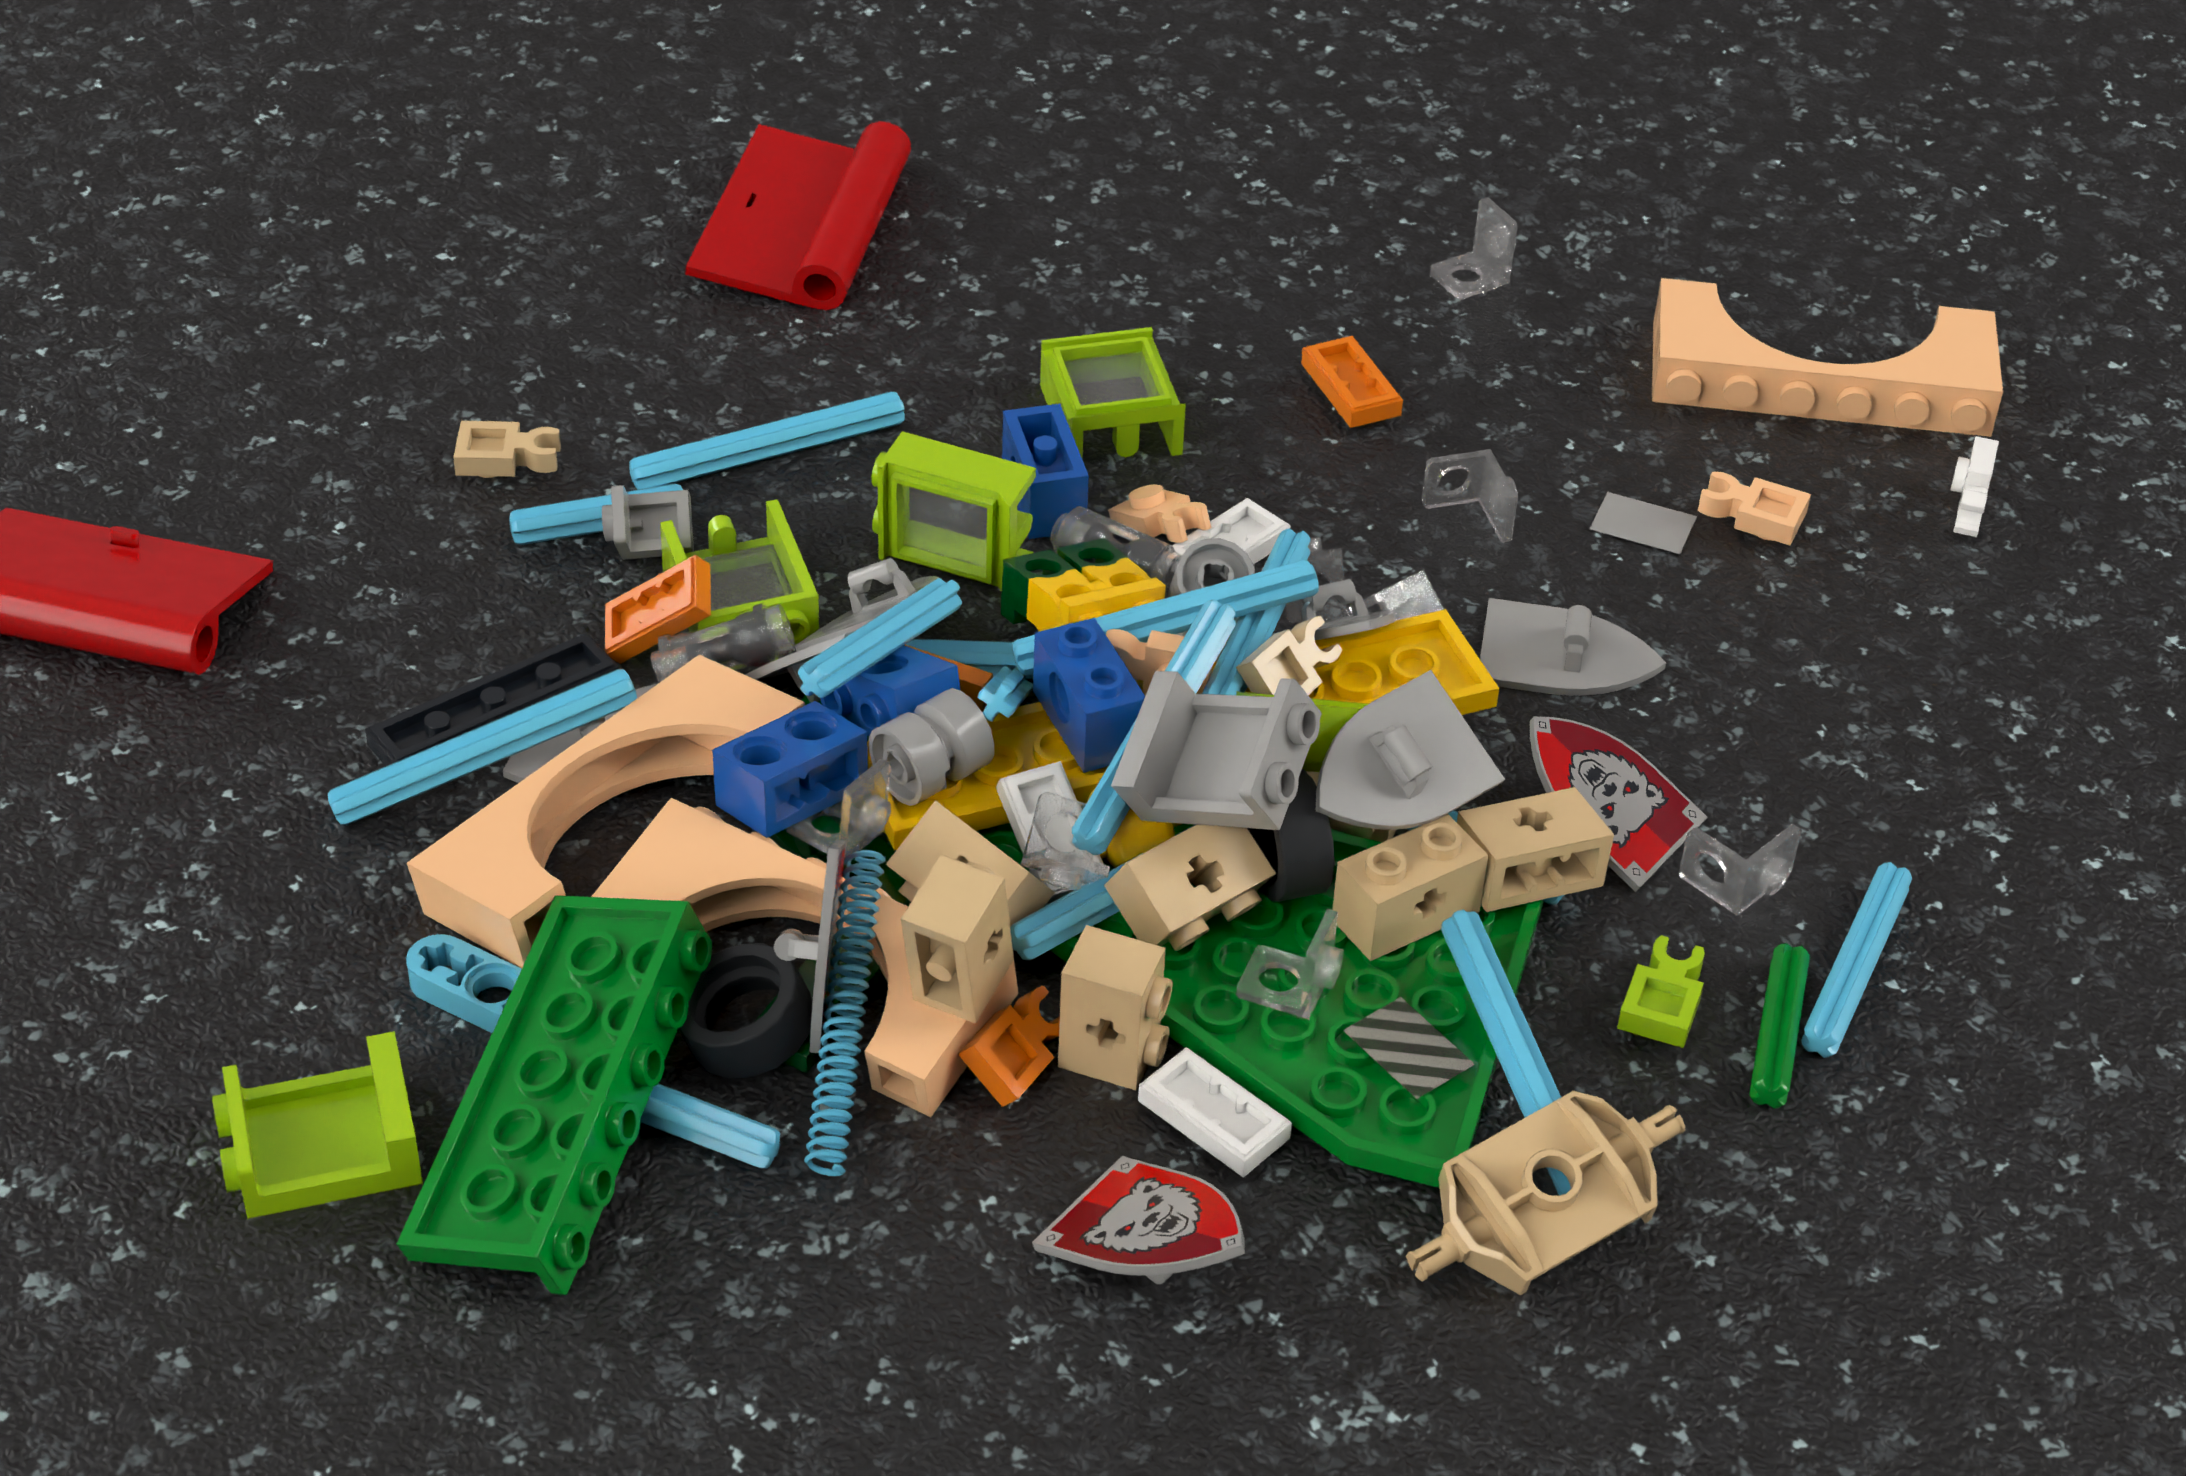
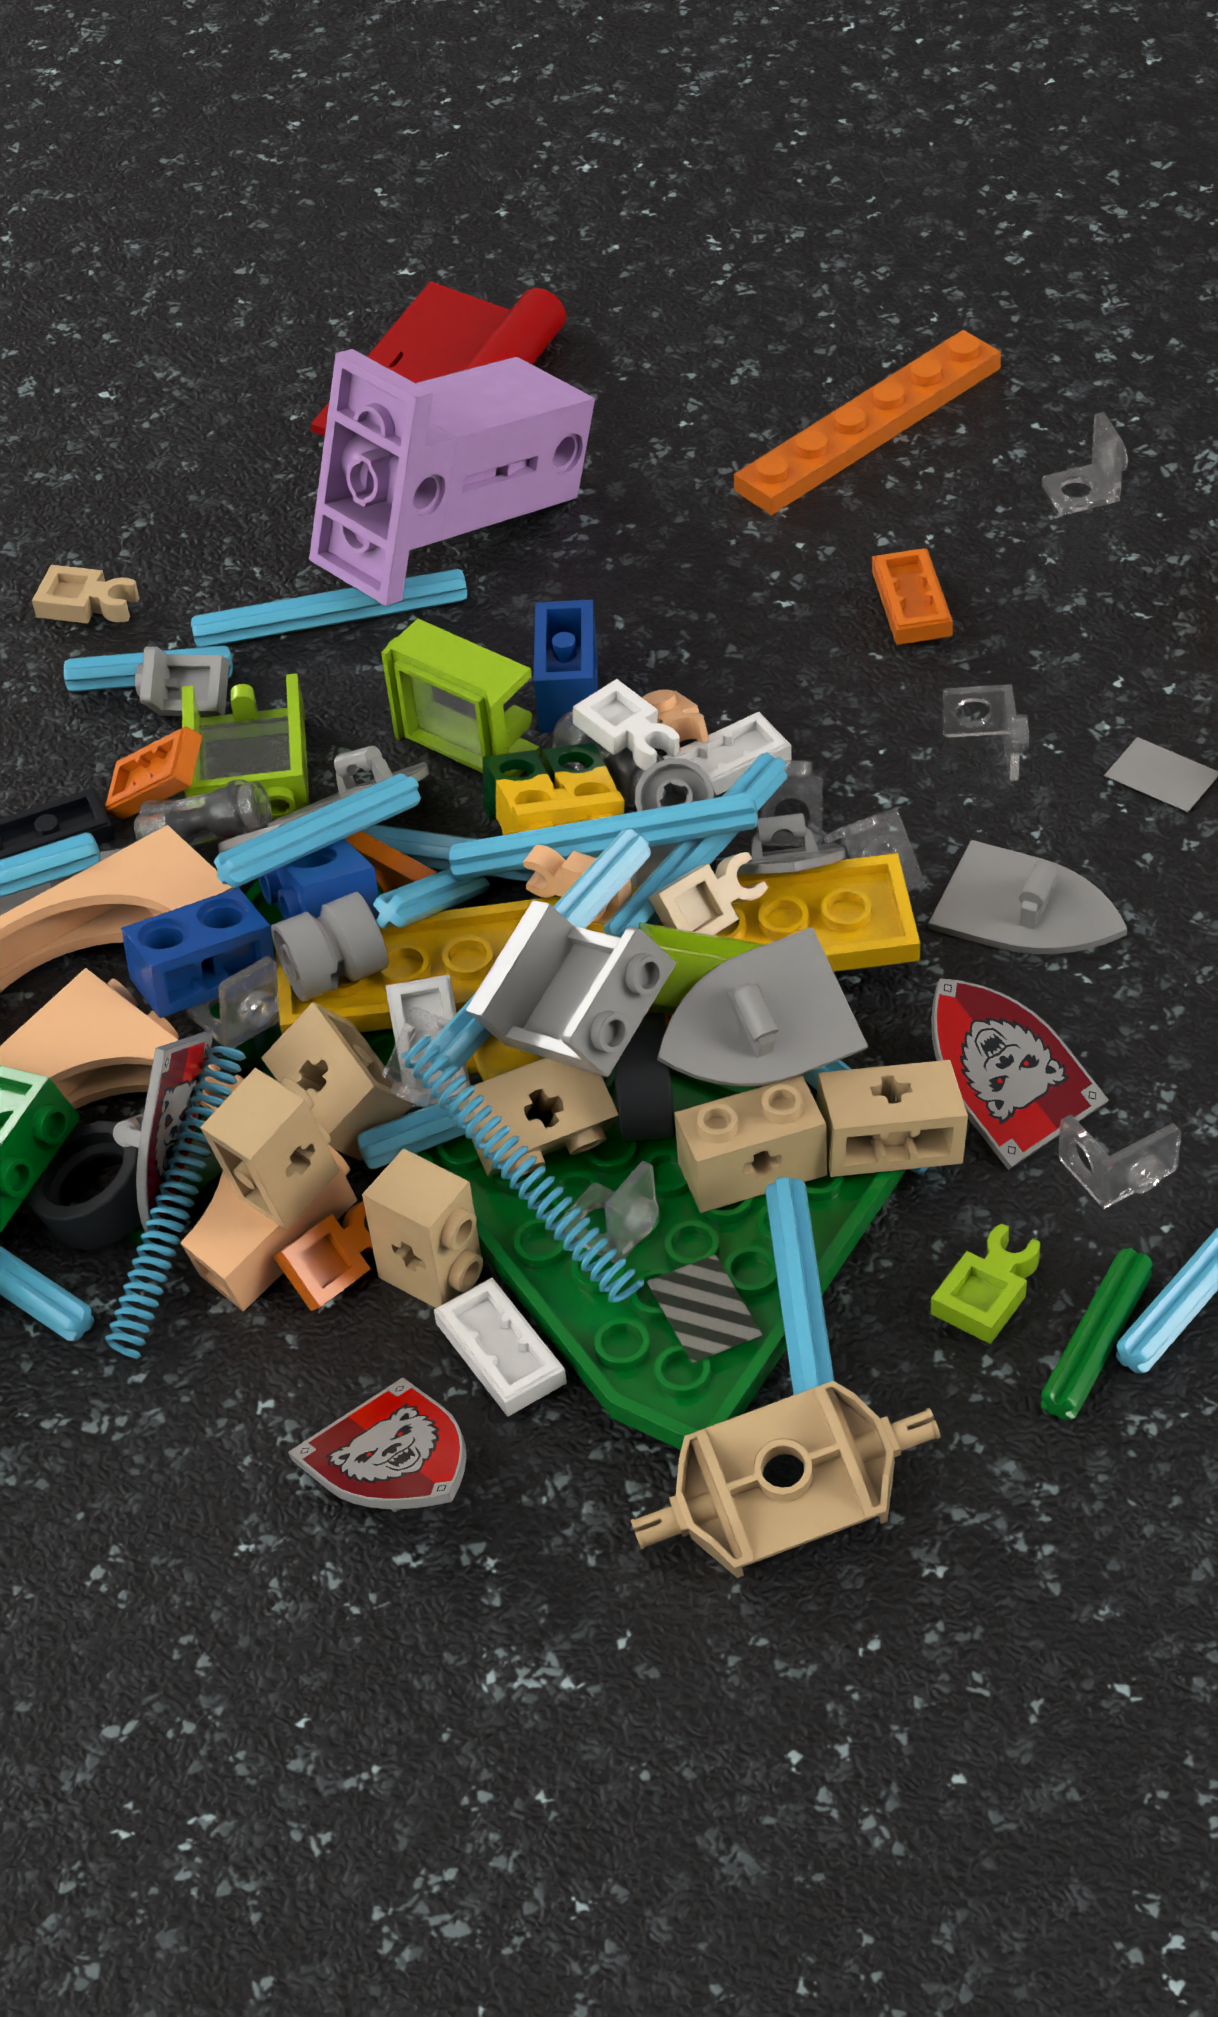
camera: 20 degrees right, 5 degrees up
(855, 285) = (437, 461): none -> lavender brick
(1085, 691) = (493, 894): blue brick -> none
(1112, 383) = (665, 581): lime window -> none
(1134, 513) = (623, 719): none -> white plate
(1205, 934) = (559, 1226): none -> medium azure piece
(1242, 228) = (866, 422): none -> orange plate

